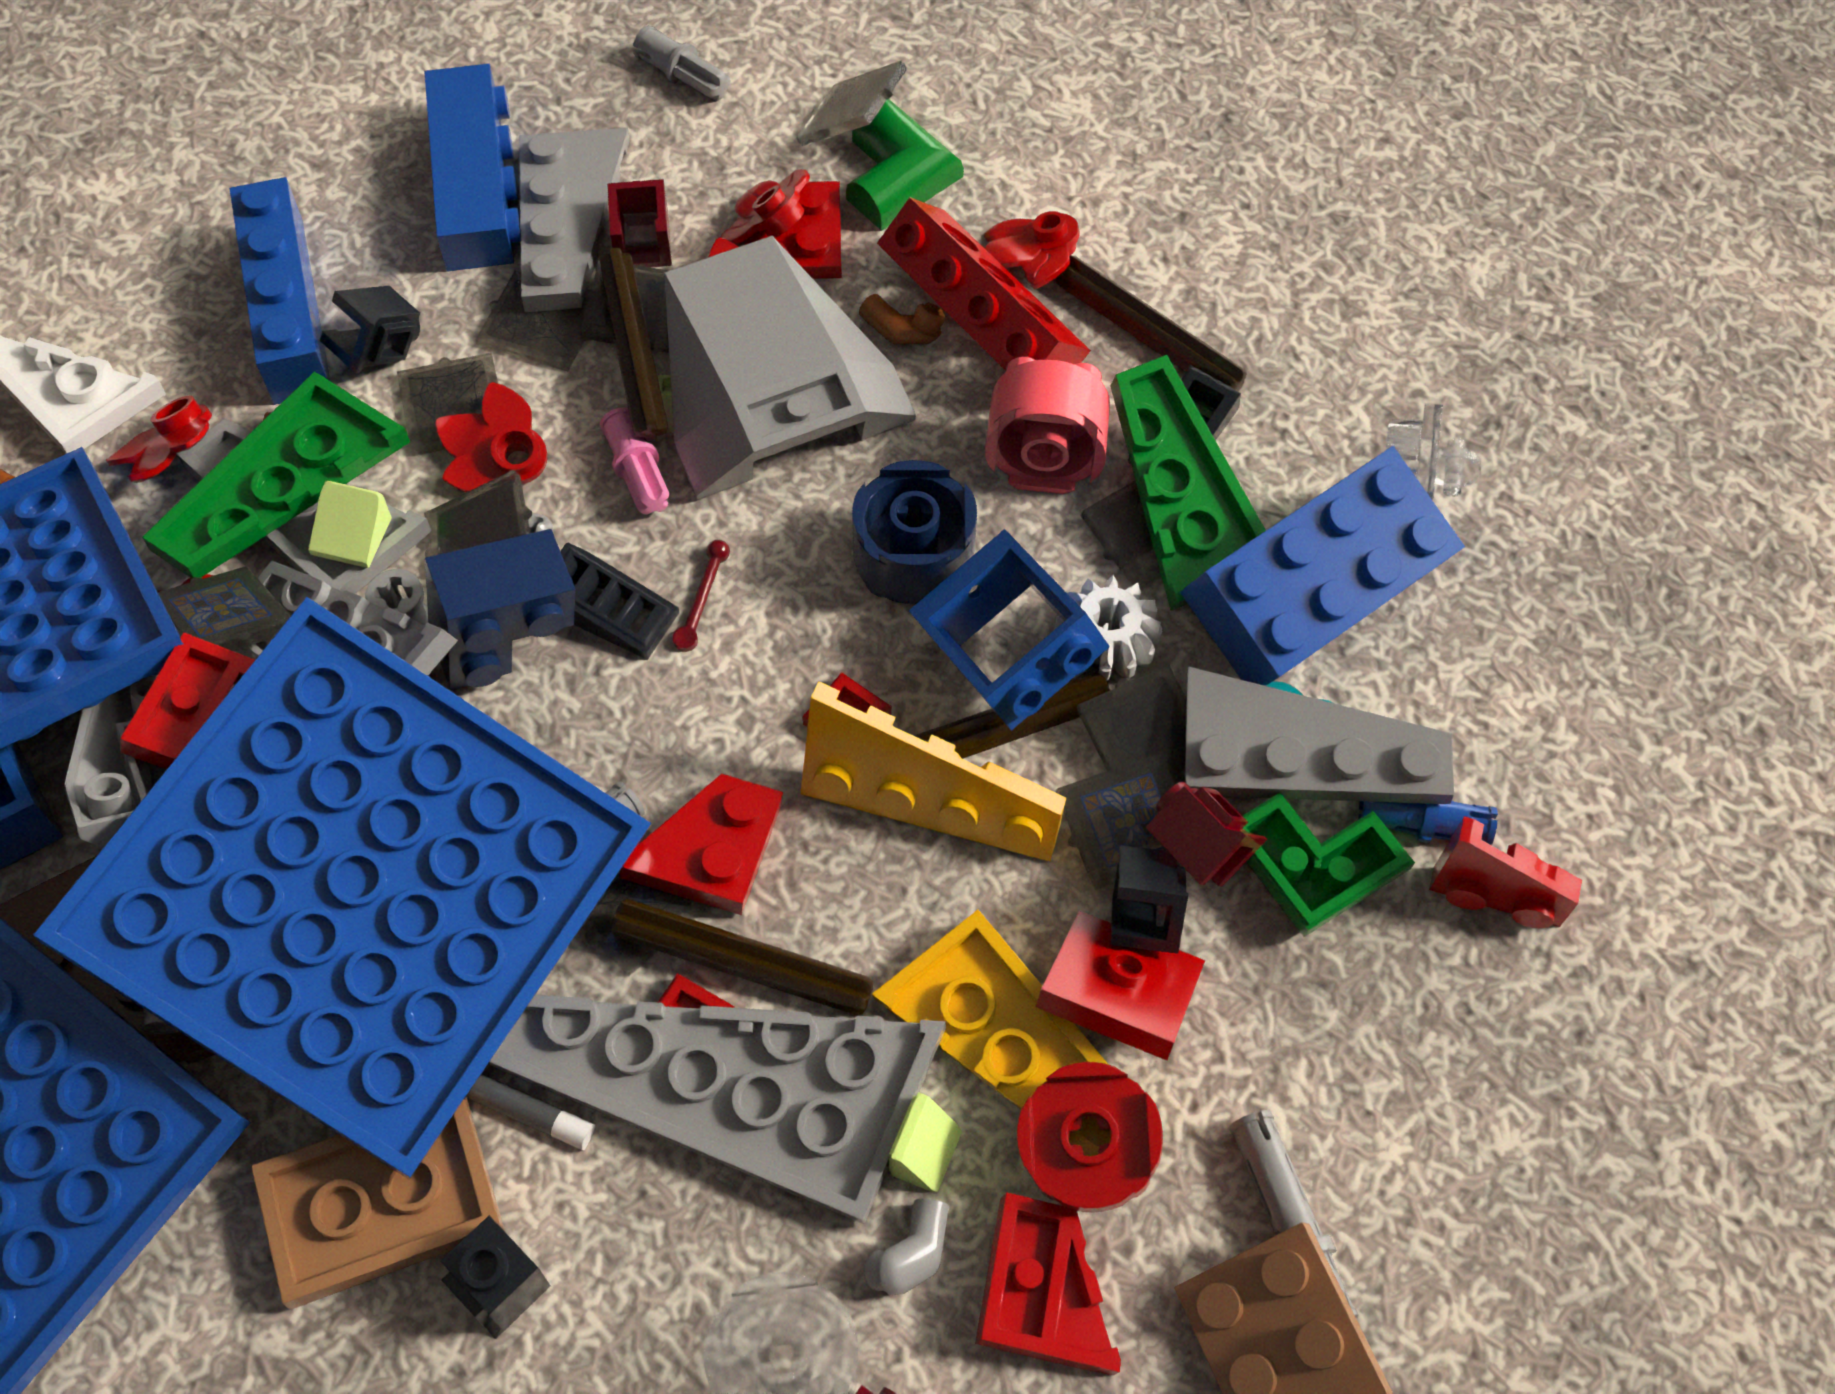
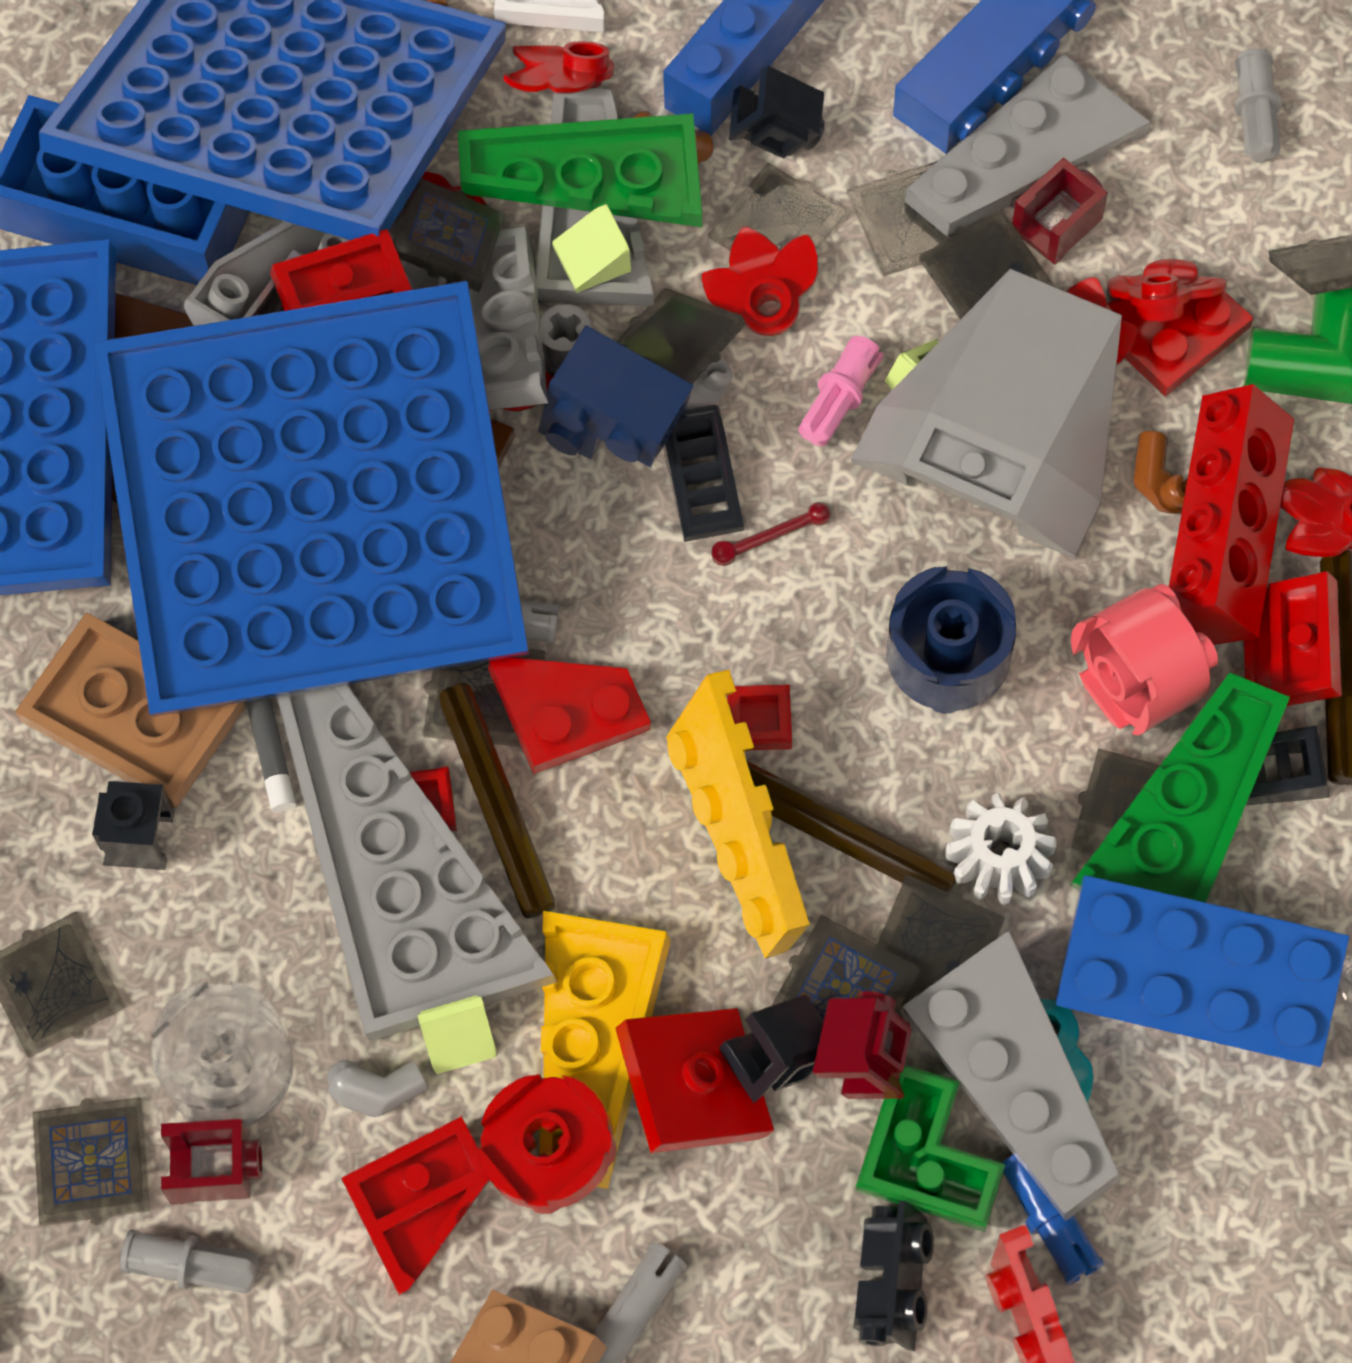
camera: 55 degrees right, 5 degrees up
(633, 345) = (935, 301): dark brown axle -> none
(1002, 574) = (897, 723): blue window -> none
(1114, 327) = (1298, 640): none -> red plate
(1376, 943) = (899, 1246): none -> black hinge

